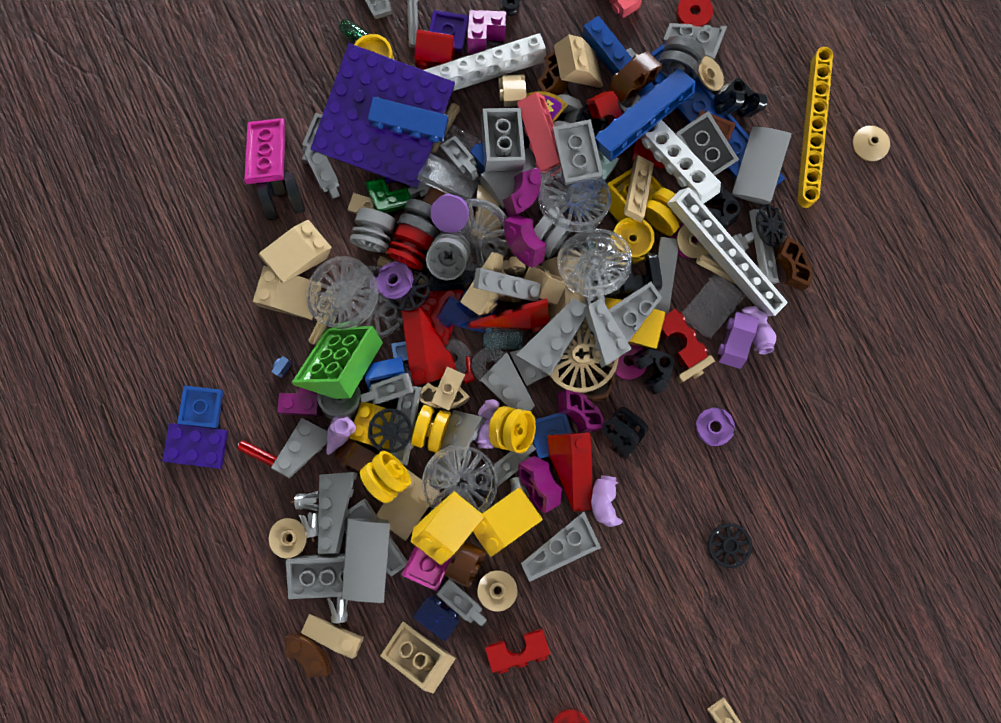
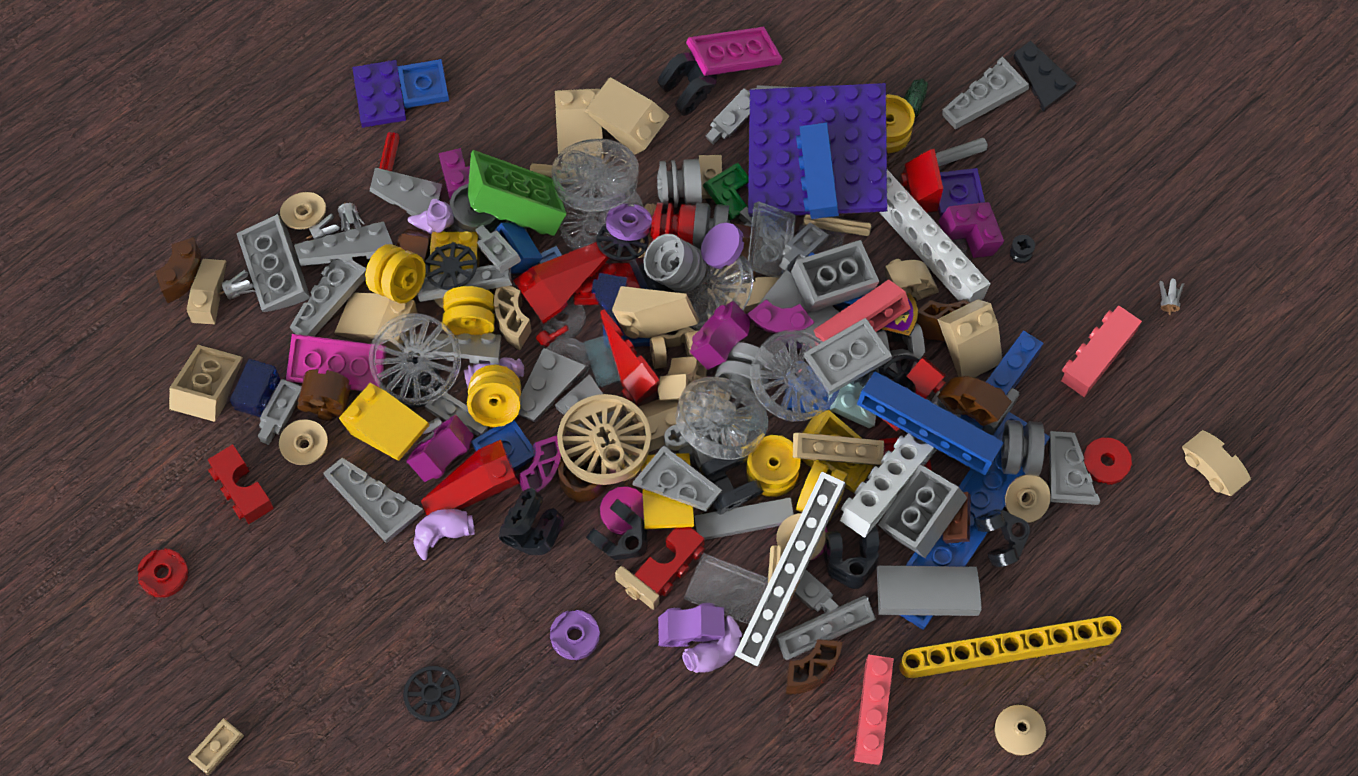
camera: 70 degrees right, 15 degrees down
(281, 366) = (493, 146): medium blue plate -> none
(365, 560) = (299, 291): light grey slope -> none
(446, 528) = (356, 353): yellow slope -> none
(448, 388) = (518, 311): tan plate -> none
(506, 285) = (657, 328): light grey plate -> none
(552, 341) = (610, 399): light grey wing -> none
(608, 336) = (636, 451): light grey wing -> none
(770, 225) = (855, 624): black wheel -> none
(835, 234) = (873, 709): none -> coral brick

